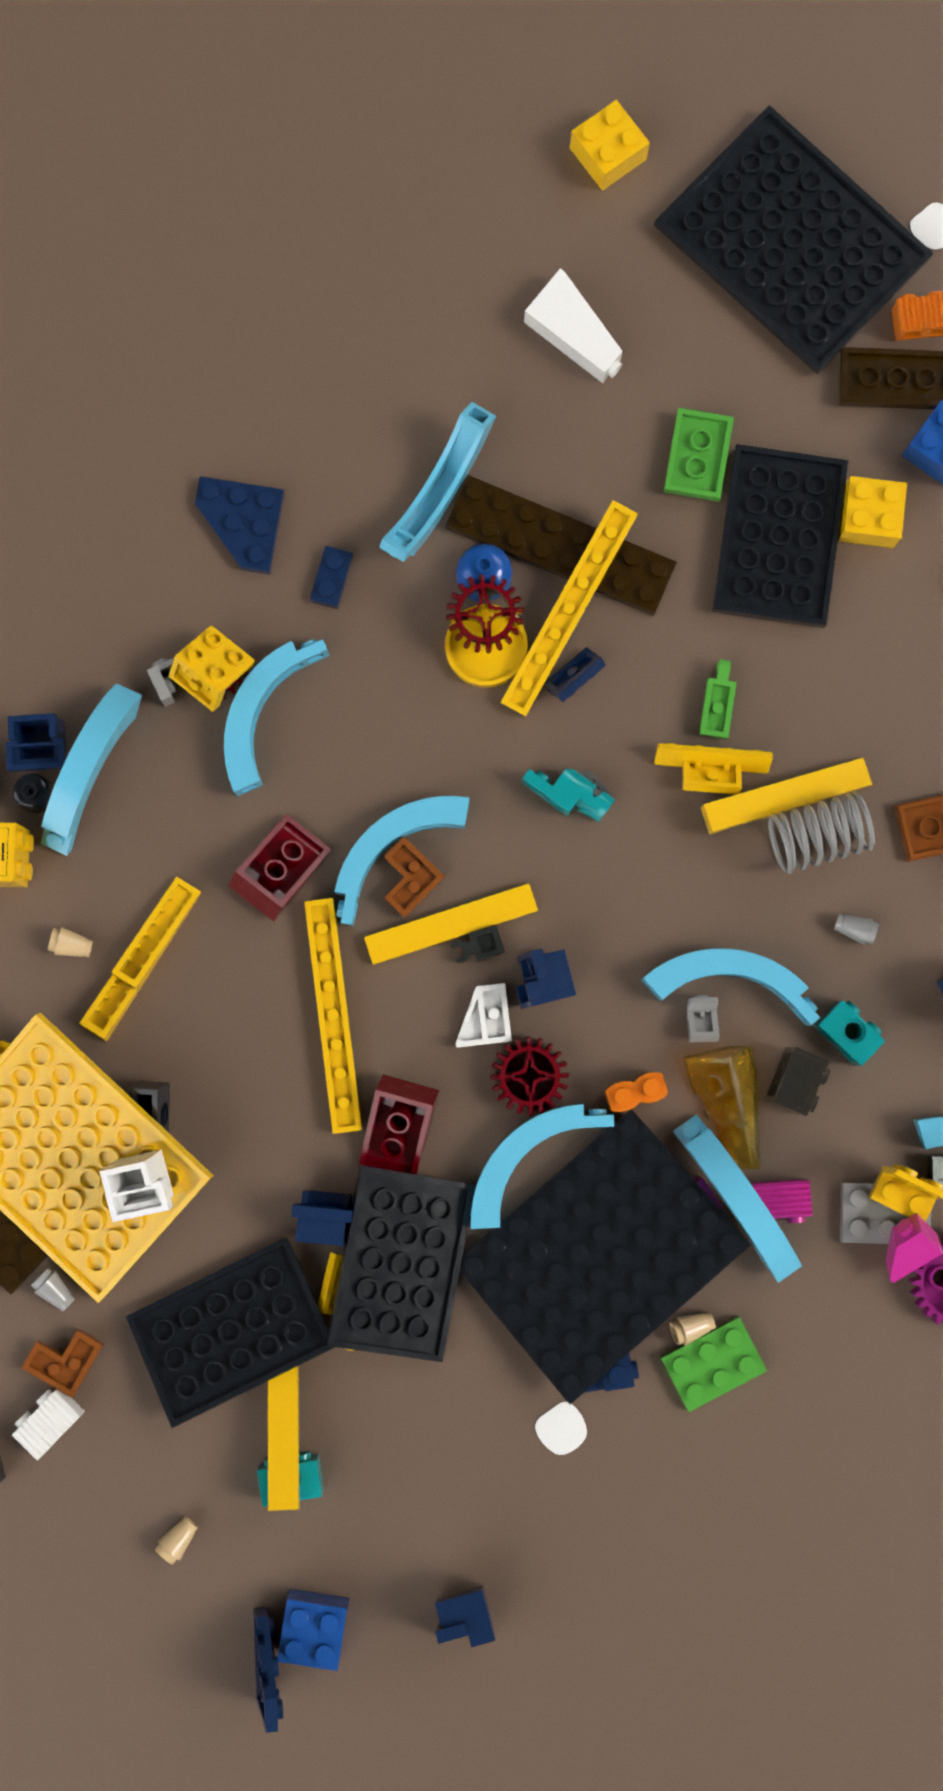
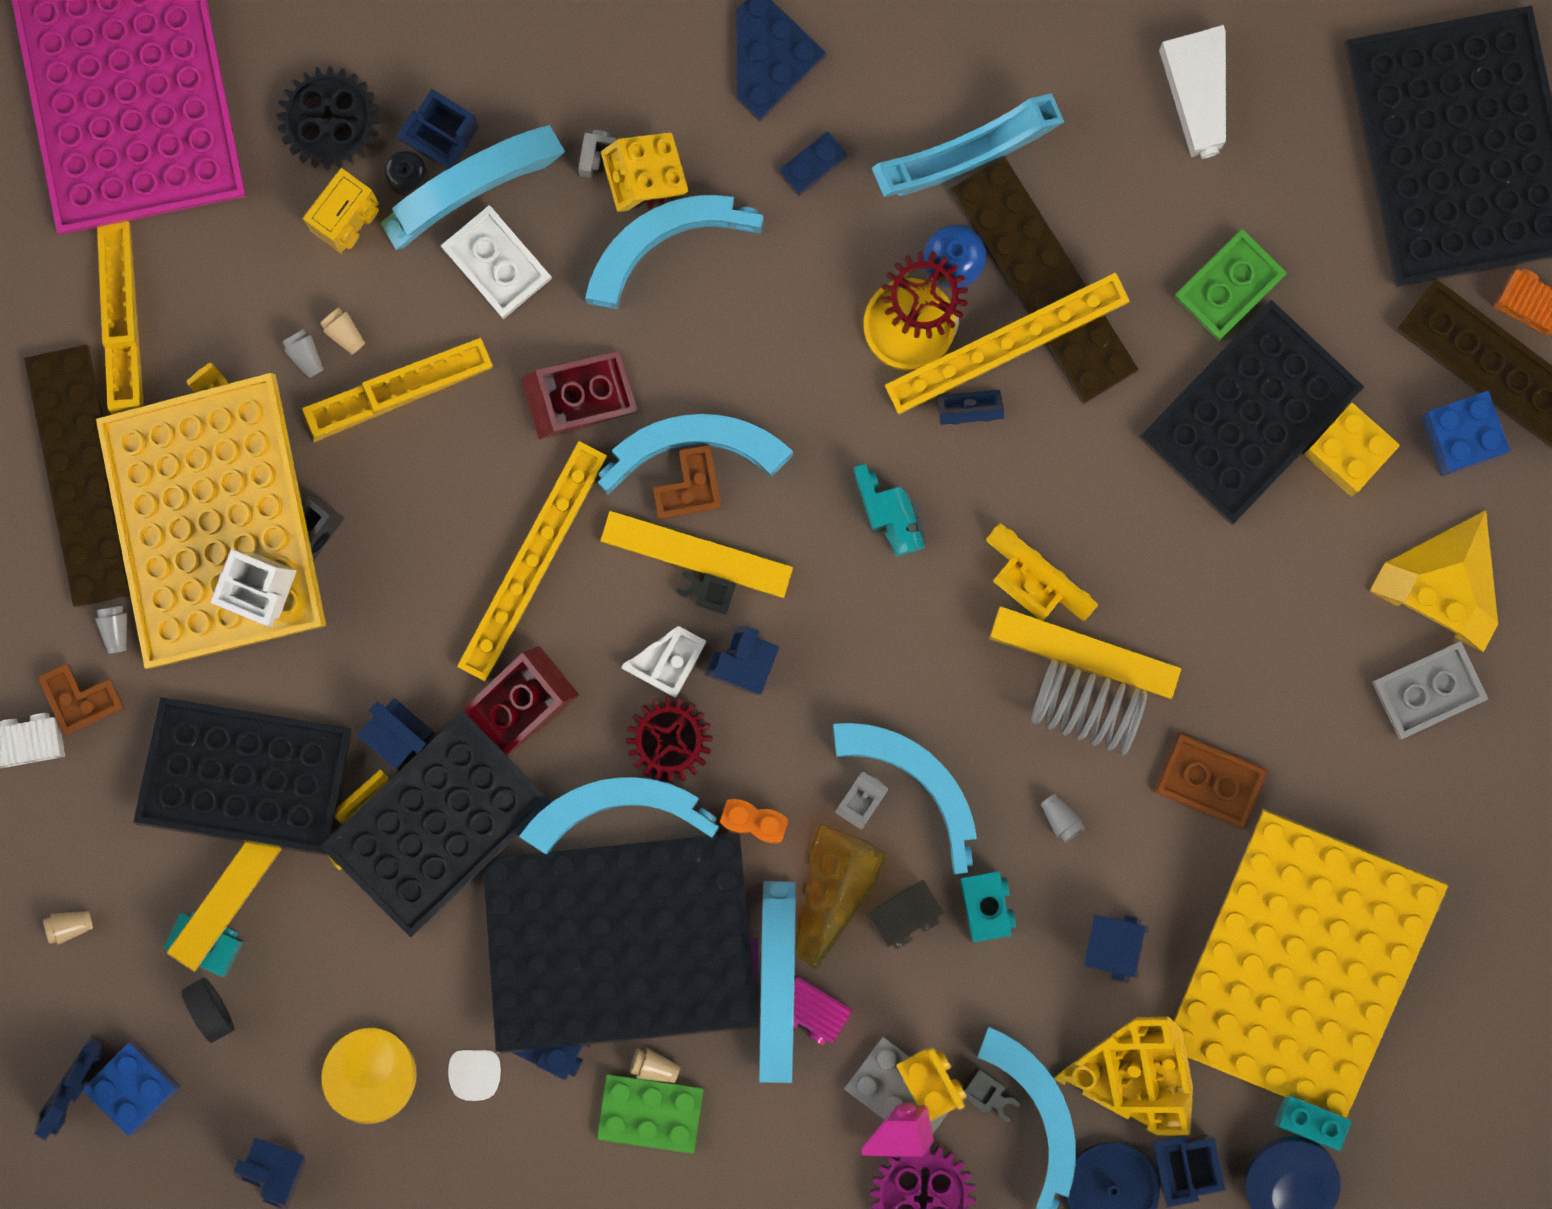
camera: 35 degrees right, 0 degrees up
(51, 981) = (303, 353): none -> light grey cone
(148, 812) = (496, 262): none -> white plate
(329, 1529) = (207, 1010): none -> black tyre
(485, 1489) = (369, 1076): none -> yellow piece
(718, 703) = (1082, 526): bright green plate -> none

